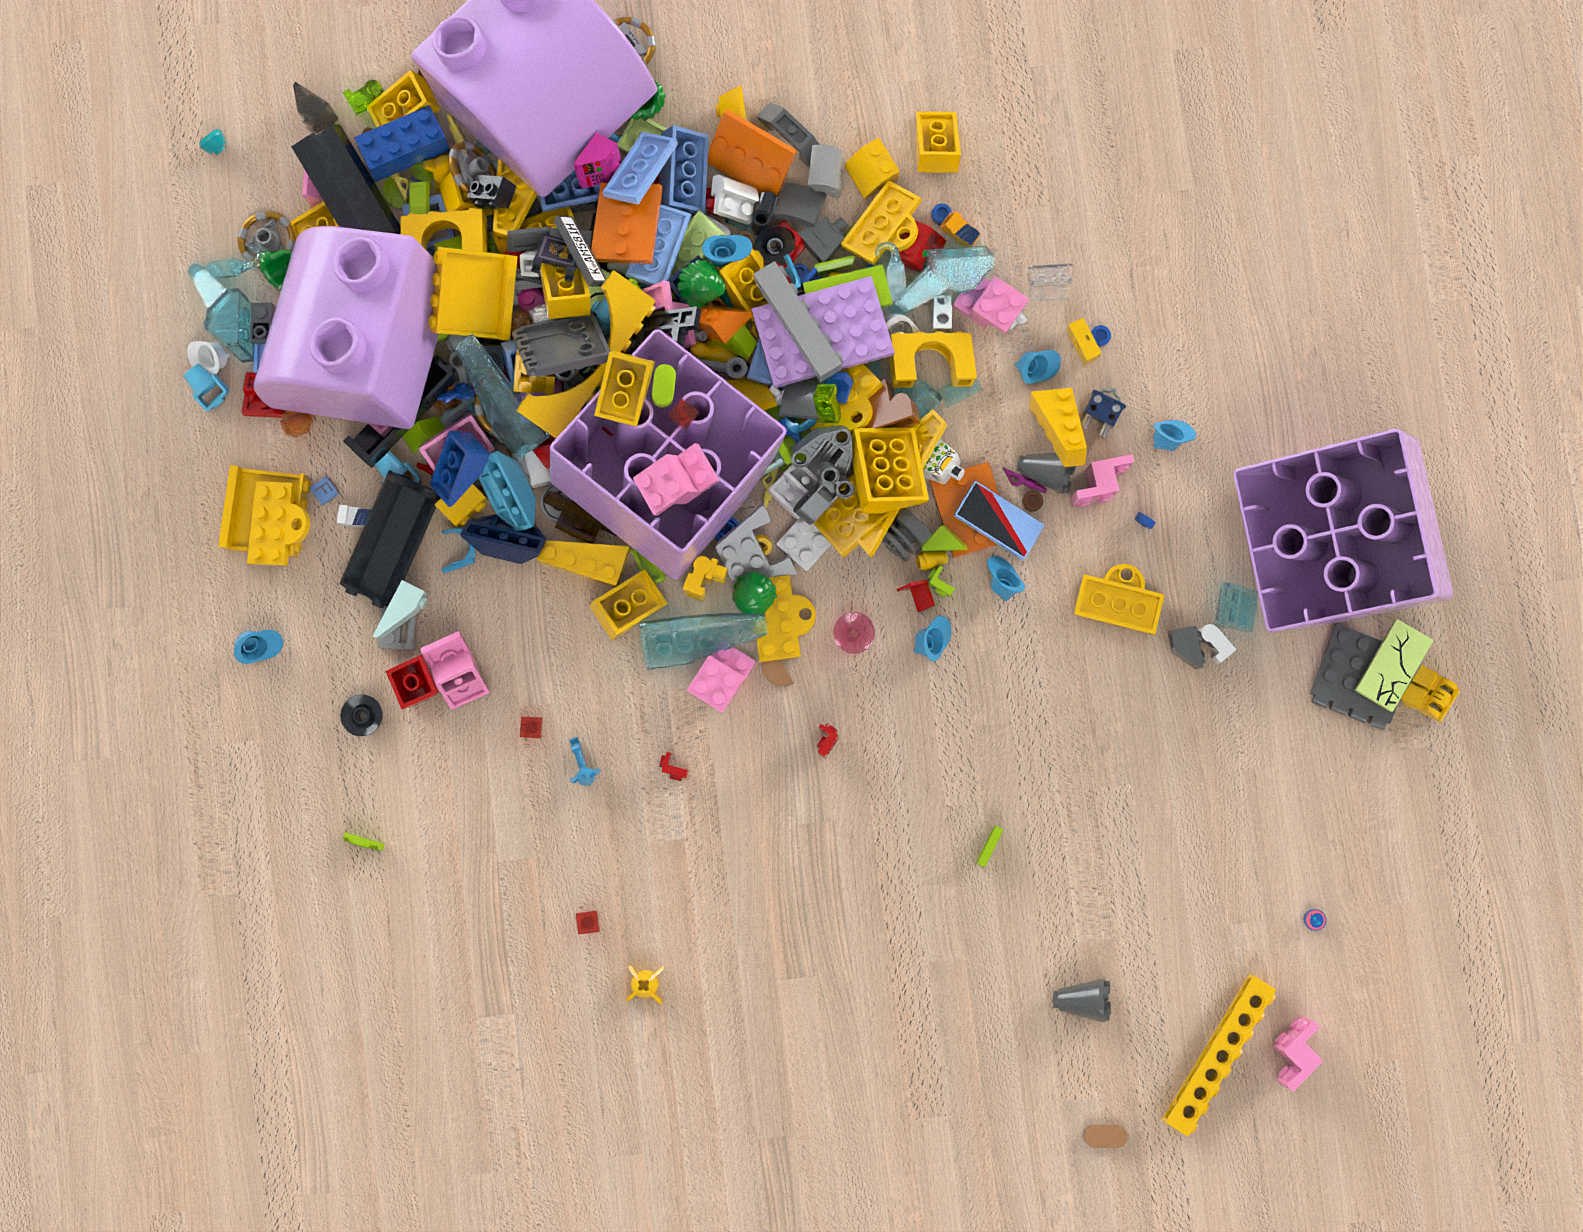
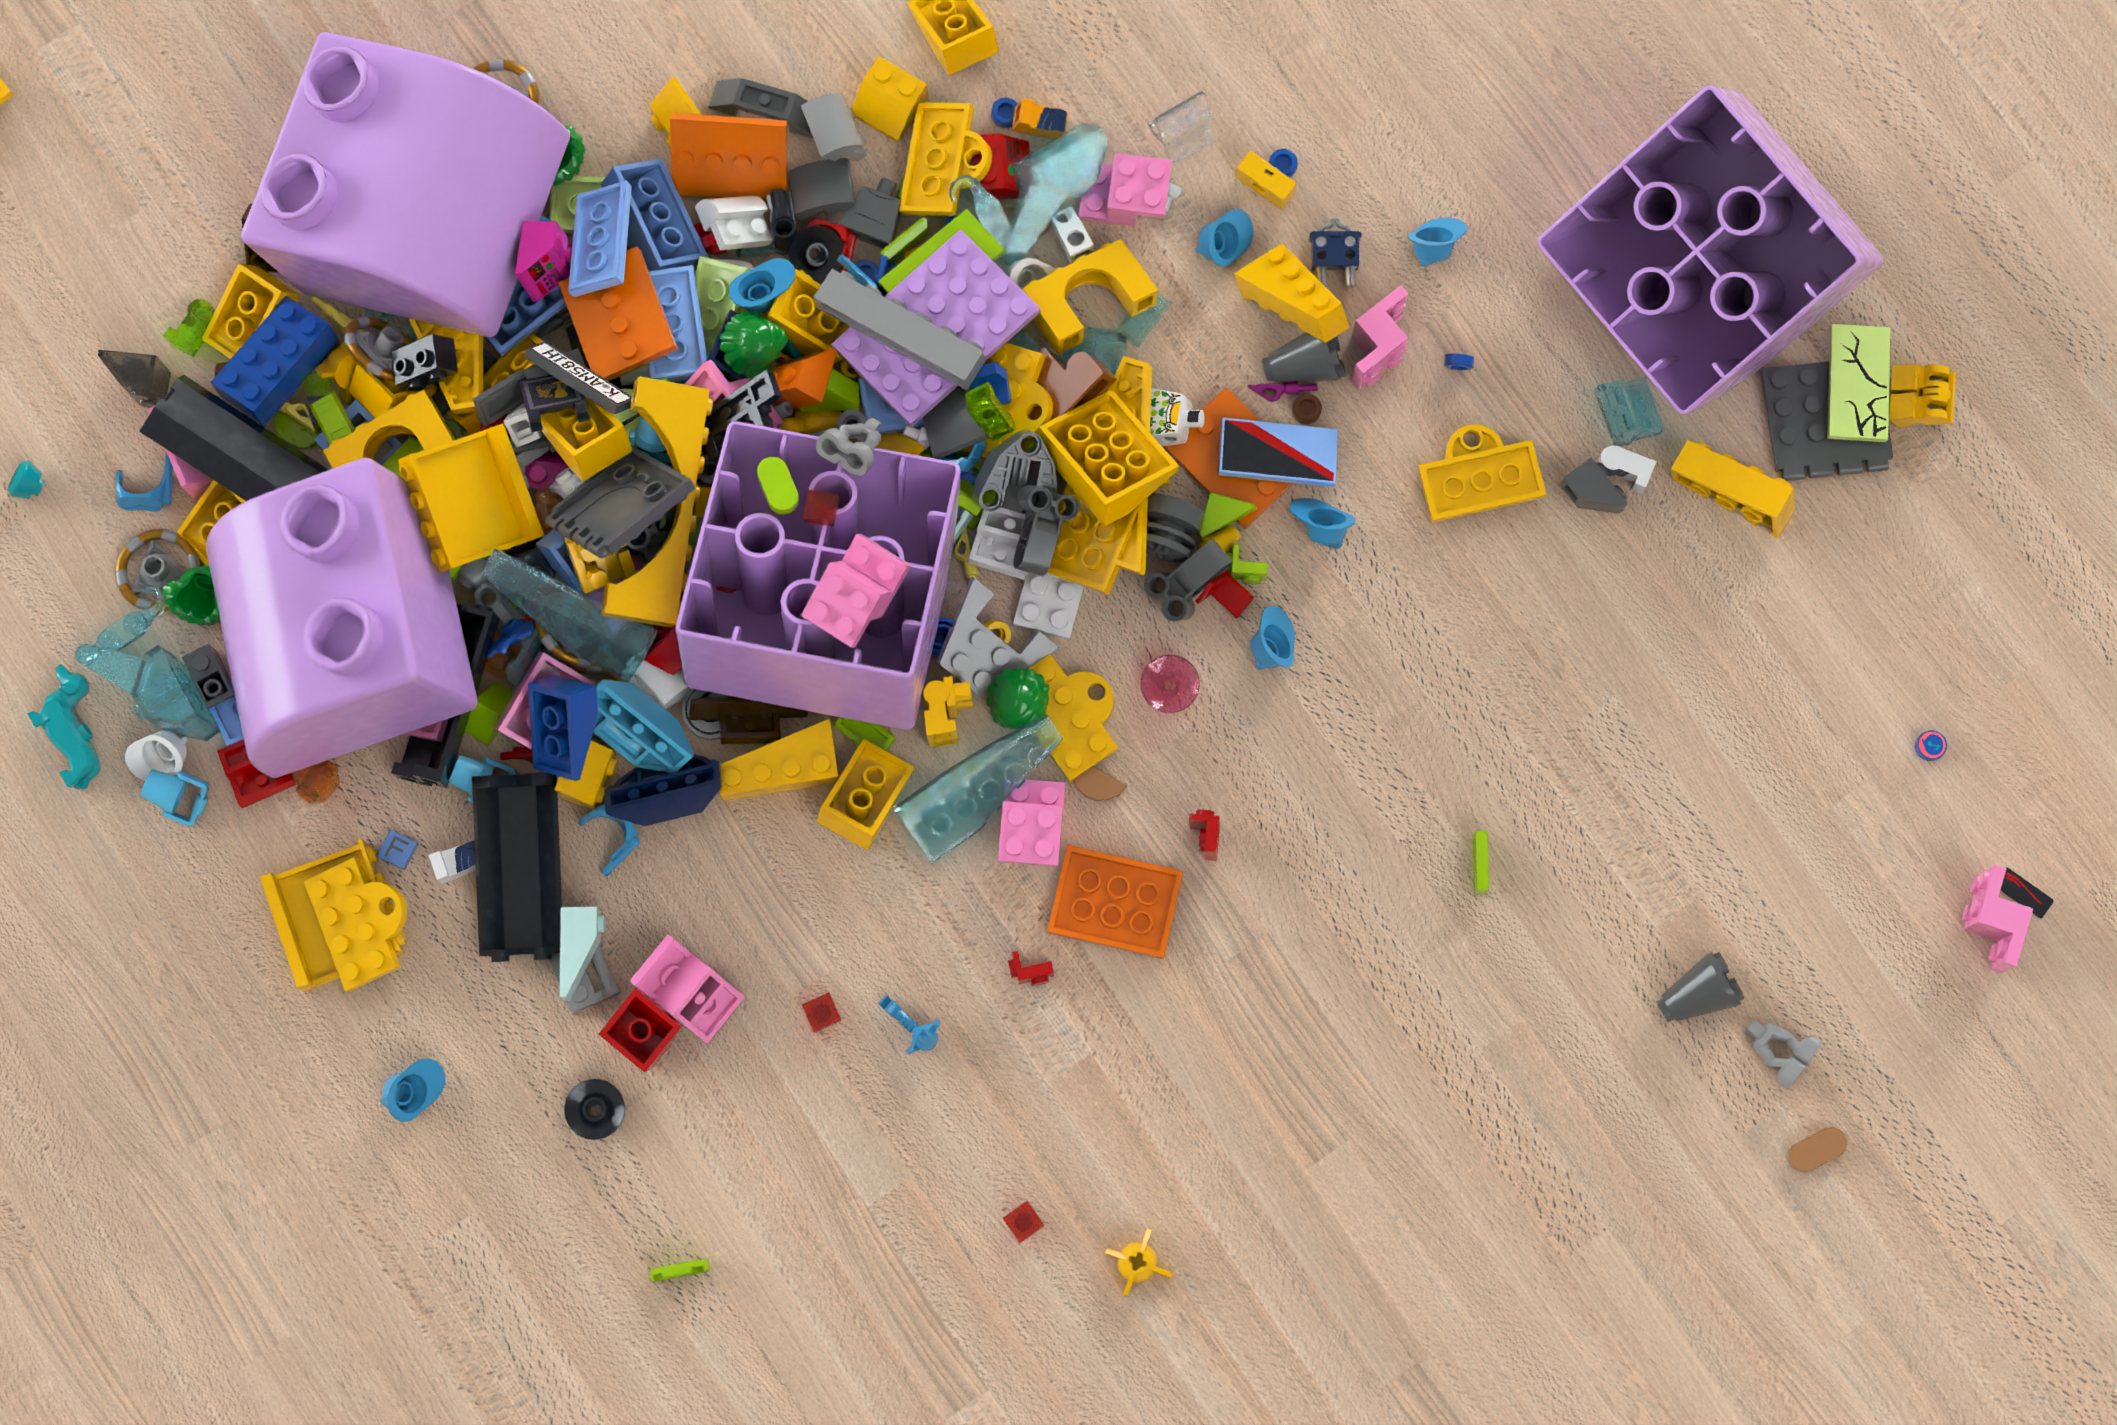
camera: 25 degrees left, 5 degrees down
(160, 313) = (65, 730): none -> teal animal
(284, 194) = (148, 501): none -> dark azure helmet
(624, 388) = (731, 512): yellow slope -> none
(723, 392) = (854, 457): none -> light grey piece
(748, 752) = (1115, 902): none -> orange plate
(898, 573) = (1188, 579): none -> dark grey piece
(1116, 1077) = (1791, 1067): none -> light grey piece
(1208, 1060) = (1889, 1078): yellow brick -> none
(1278, 690) = (1735, 486): none -> yellow wedge
(1325, 1045) = (2025, 893): none -> black sticker

